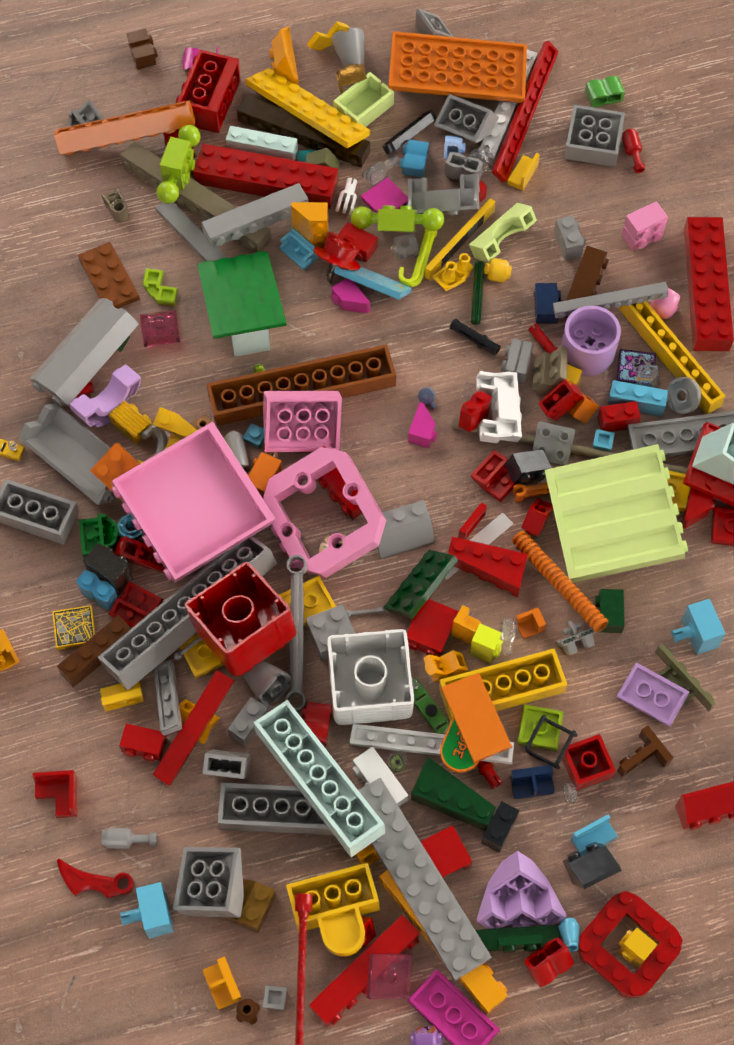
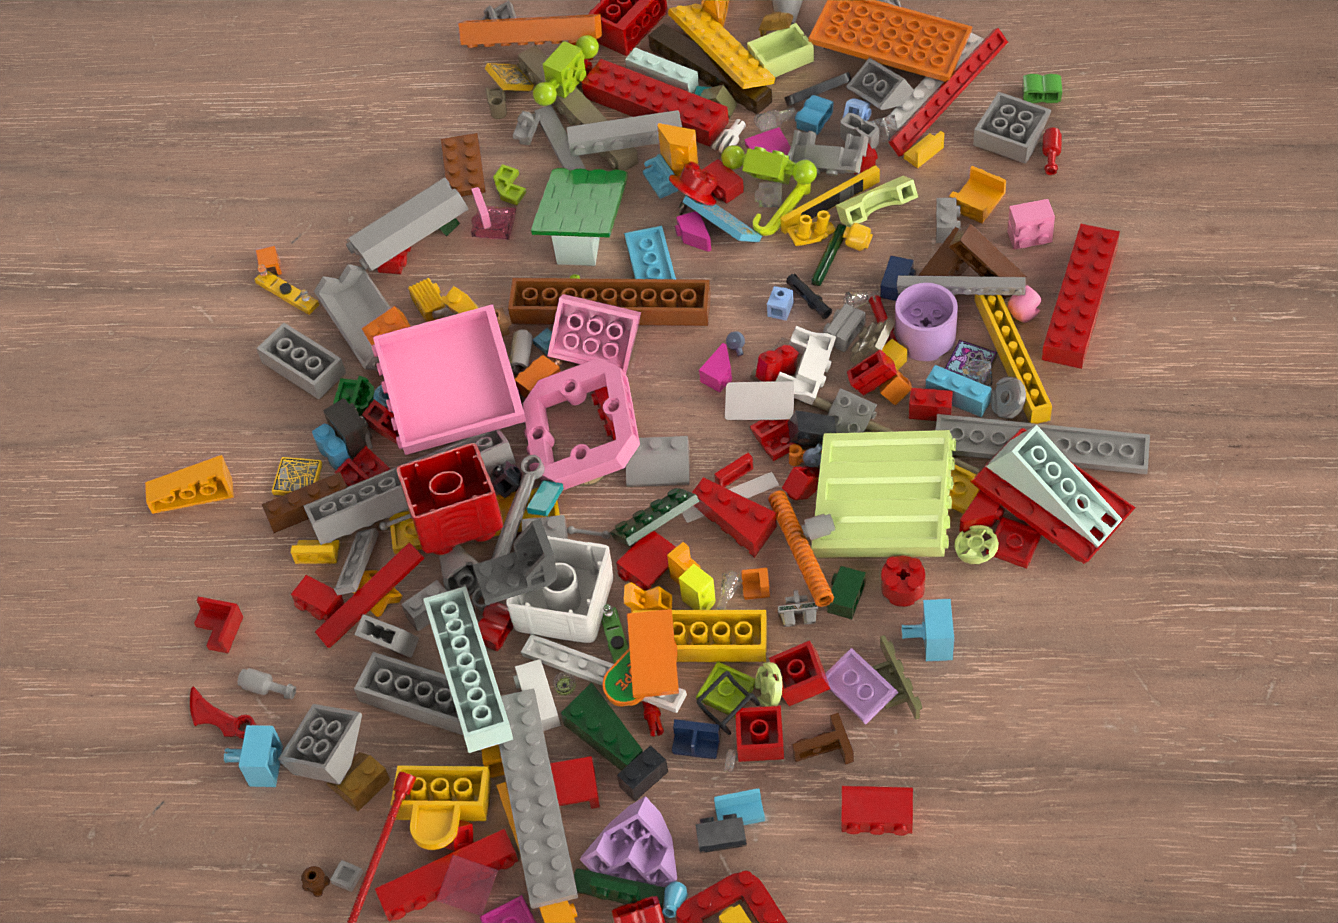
camera: 25 degrees right, 10 degrees down
(96, 410) = (395, 282): lavender brick -> none
(120, 178) = (509, 77): none -> yellow tile
(150, 319) = (481, 207): none -> bright pink tile
(156, 226) = (526, 127): none -> light grey hips
(222, 984) = (301, 847): light orange panel -> none
(278, 580) = (506, 478): none -> black brick
(318, 330) = (649, 254): none -> medium azure tile
(318, 592) = (545, 498): none -> teal tile
(343, 670) = (519, 572): none -> dark grey bracket
(453, 350) = (780, 303): none -> light blue brick
(472, 450) = (759, 400): none -> white sticker
(519, 330) = (858, 299): none -> clear cone
(539, 492) = (812, 456): none -> sand blue piece
(572, 559) = (818, 526): none -> light grey brick
(581, 721) = (770, 688): none -> yellowish green piece
(587, 205) = (979, 194): none -> light orange panel
(601, 697) = (800, 673): none -> red brick
(603, 440) = (905, 422): medium azure plate -> none
(621, 268) = (982, 255): none -> reddish brown brick
(655, 587) = (903, 580): none -> red brick
(702, 537) = (976, 544): none -> yellowish green piece

